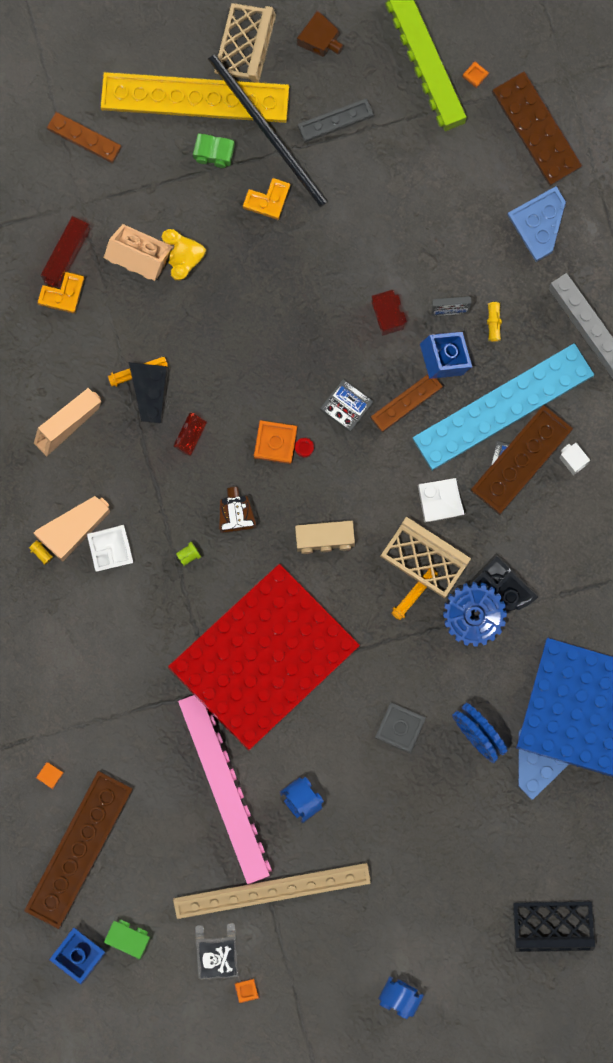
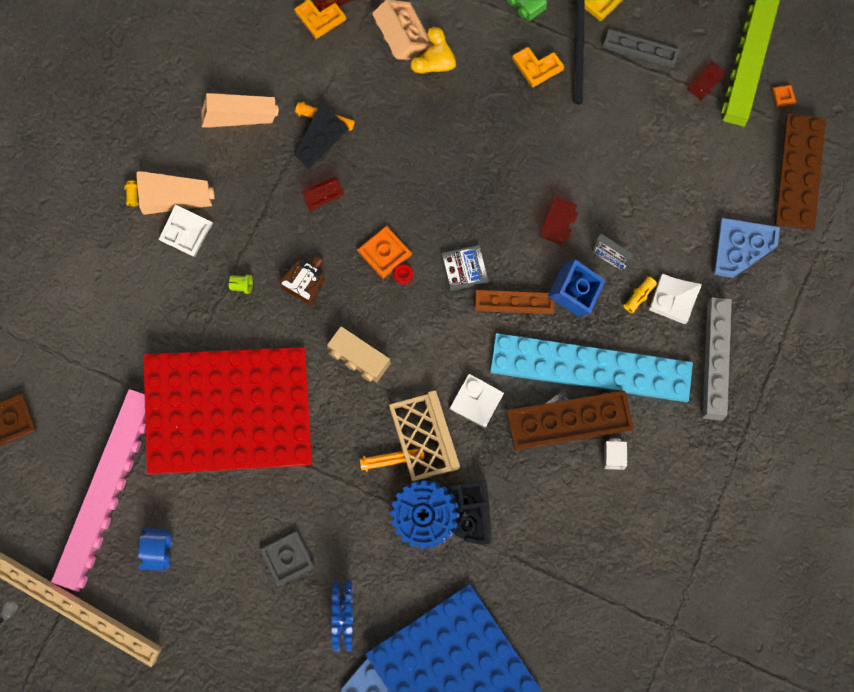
camera: 40 degrees right, 5 degrees down
(407, 108) = (706, 81): none -> clear red plate
(521, 303) = (674, 298): none -> white plate

